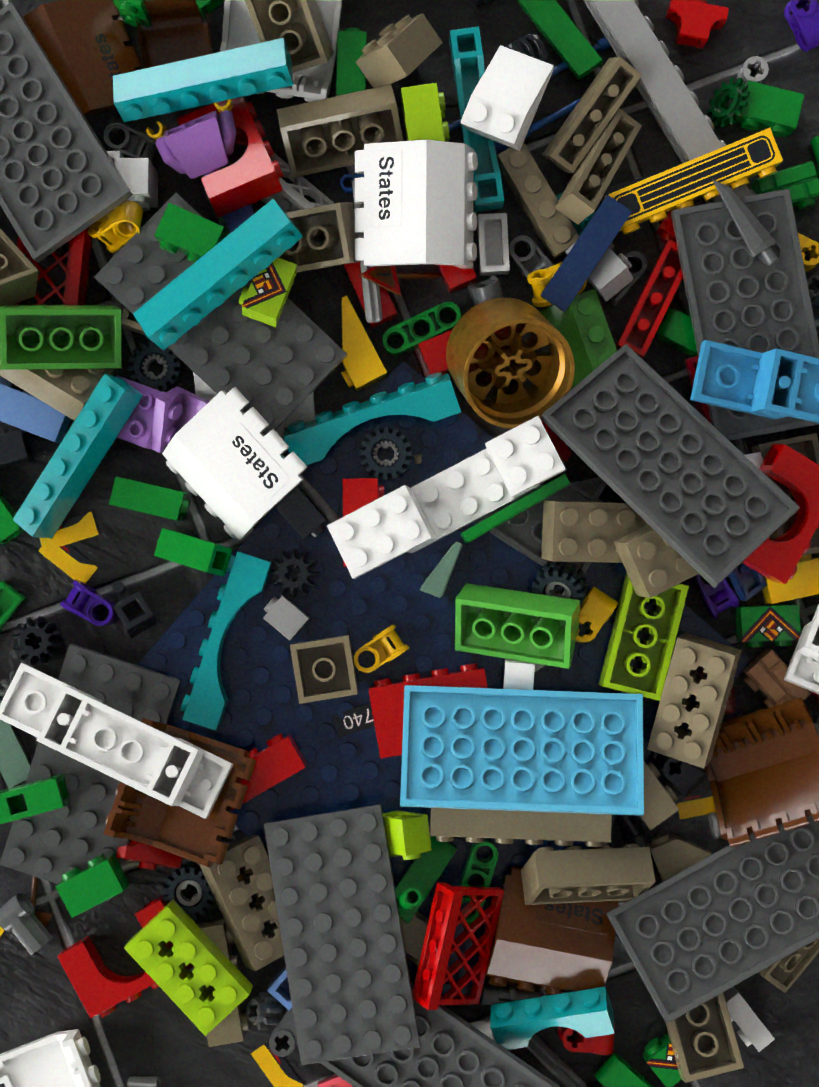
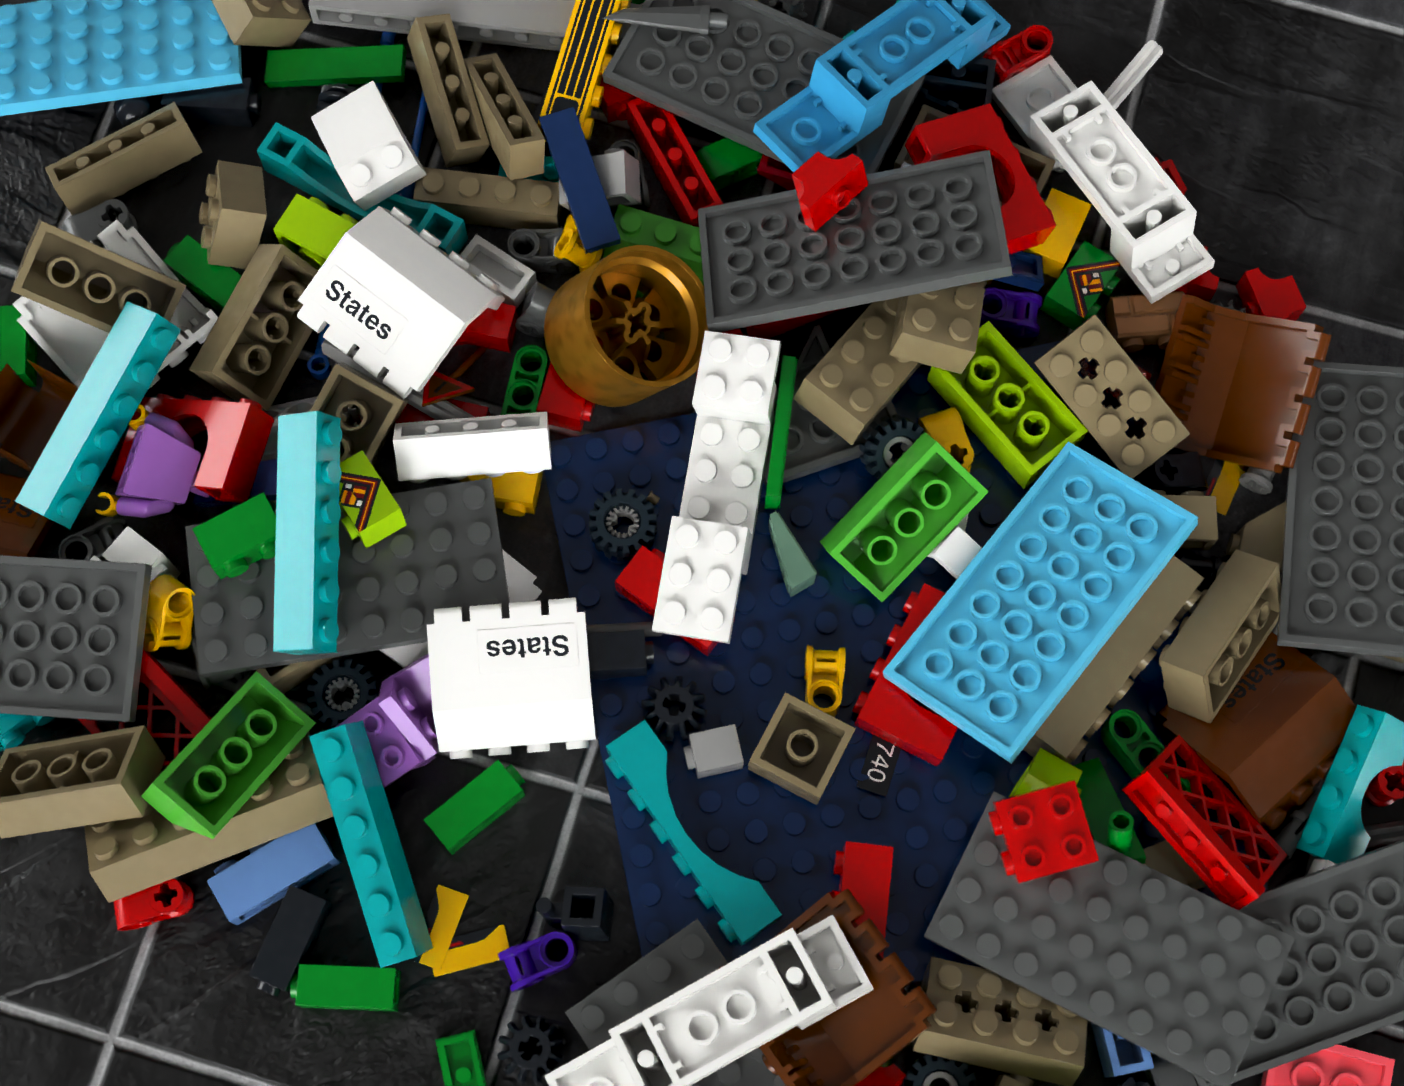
camera: 55 degrees left, 15 degrees down
(193, 552) = (569, 797): green brick -> none
(358, 326) = (472, 447): none -> white brick
(370, 855) = (1043, 832): none -> red brick
(429, 400) = (603, 435): teal arch -> none
(694, 420) = (827, 186): none -> red brick

